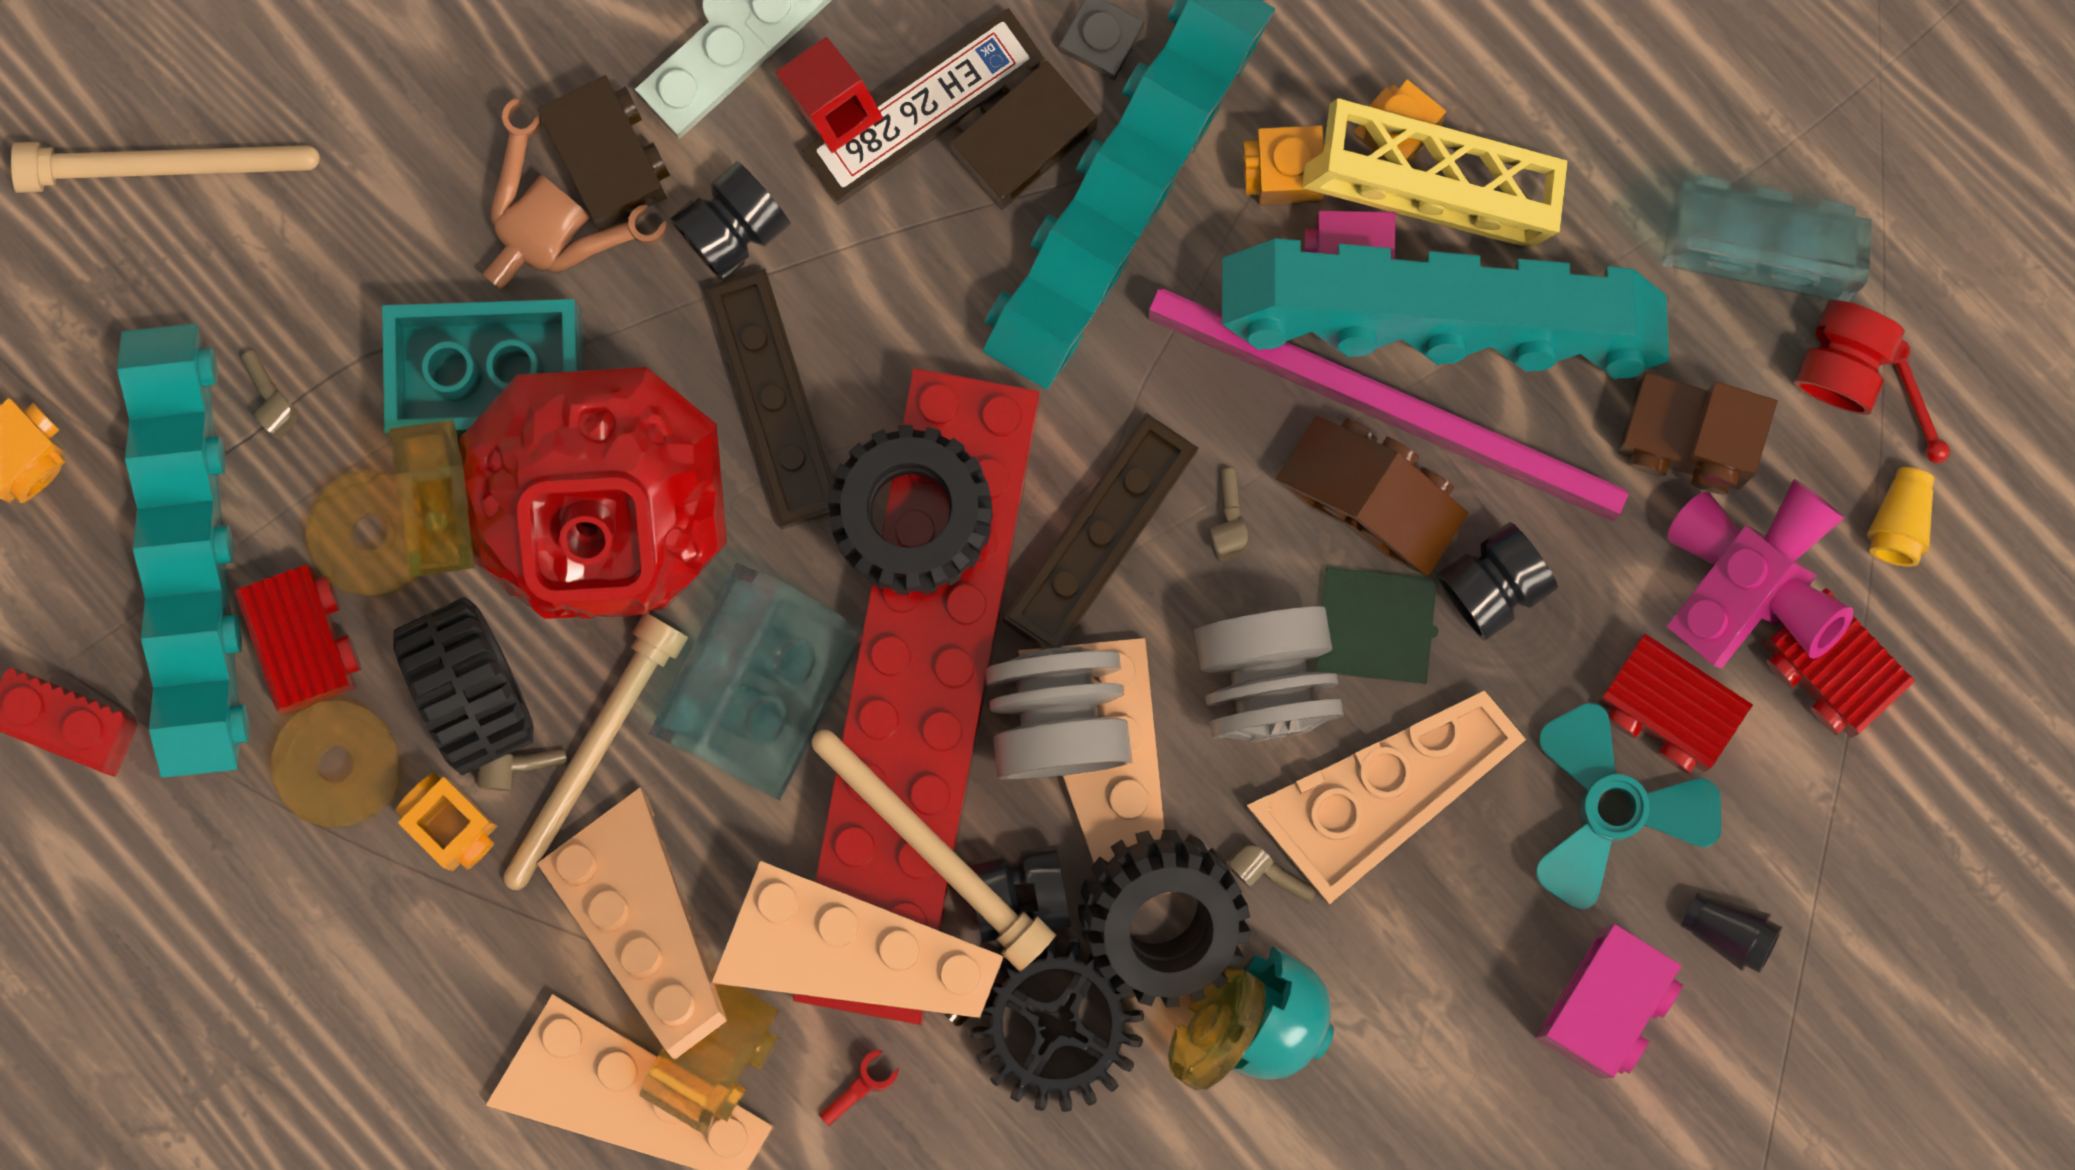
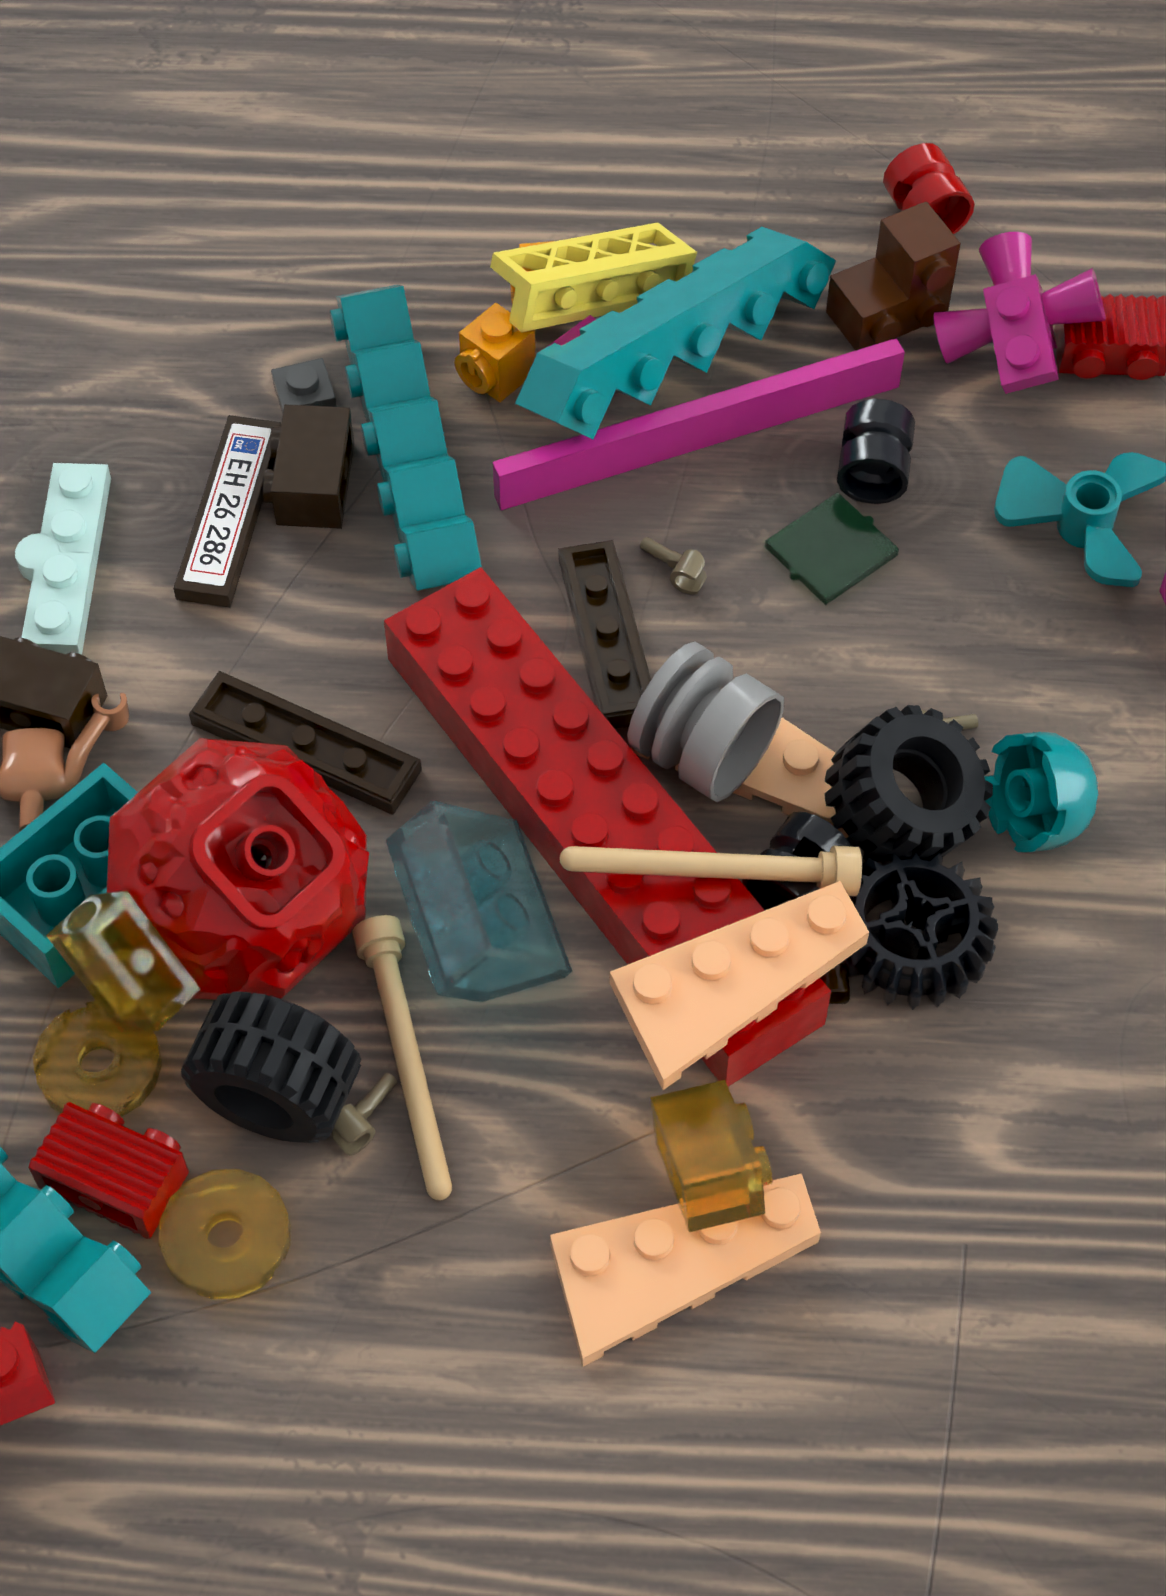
camera: 50 degrees left, 25 degrees down
(446, 823) = (351, 1180): light orange brick -> none
(630, 908) = (556, 1113): light nougat wing -> none
(733, 218) = (166, 655): black wheel -> none
(829, 94) = (160, 535): red brick -> none
(857, 1090) = (830, 1089): red hand -> none
(910, 454) = (470, 632): black tyre -> none
(1218, 1030) = (1033, 848): clear yellow tile -> none
(1268, 673) = (804, 599): light grey wheel -> none
(1373, 801) = (949, 625): light nougat wing -> none
(1374, 491) = (745, 454): reddish brown brick -> none
(1673, 705) = (1055, 427): red brick -> none
(1768, 239) = (819, 176): clear light blue slope -> none
(1904, 519) = (1057, 248): yellow cone -> none
(1936, 449) = (1027, 208): red hinge -> none

